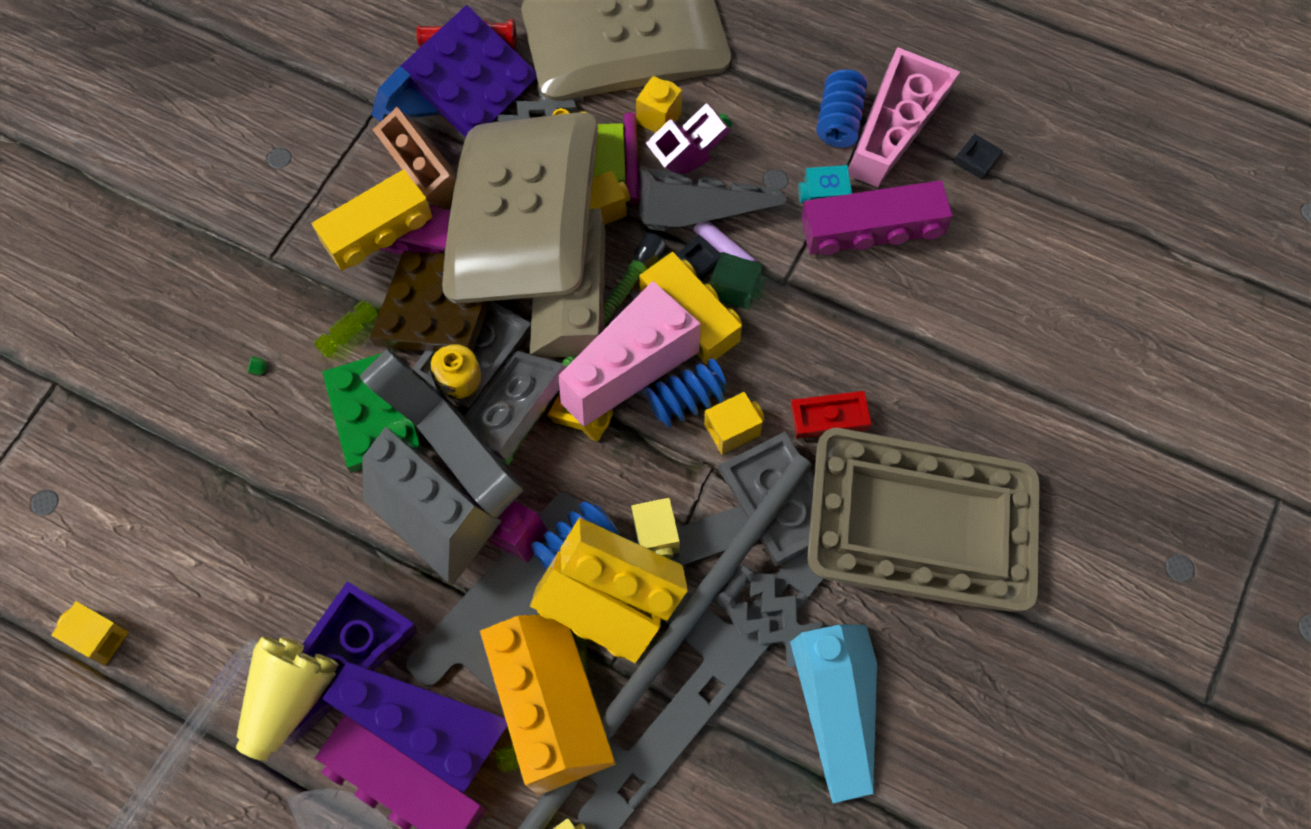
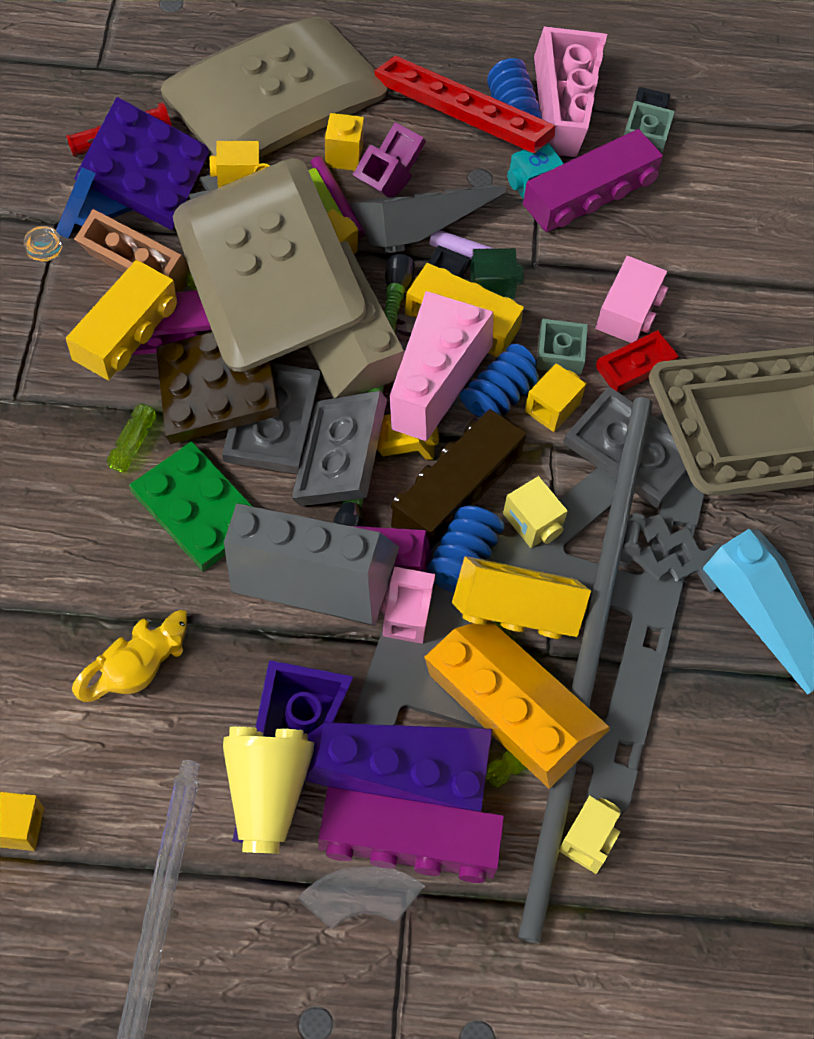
camera: 30 degrees left, 5 degrees down
(249, 536) = (133, 663): none -> yellow animal
(257, 366) = (53, 504): green piece -> none
(356, 122) = (42, 243): none -> clear tile
(446, 430) = (299, 490): dark grey beam -> none
(455, 371) = (276, 432): yellow head -> none
(497, 574) = (407, 604): none -> bright pink brick
(546, 96) = (234, 160): none -> yellow brick
(602, 470) = (459, 476): none -> dark brown brick
(623, 569) = (532, 550): yellow brick -> none
(765, 374) = (562, 344): none -> sand green piece
(788, 104) = (466, 104): none -> red plate
(855, 351) = (631, 300): none -> bright pink brick
(963, 178) = (652, 122): none -> sand green piece

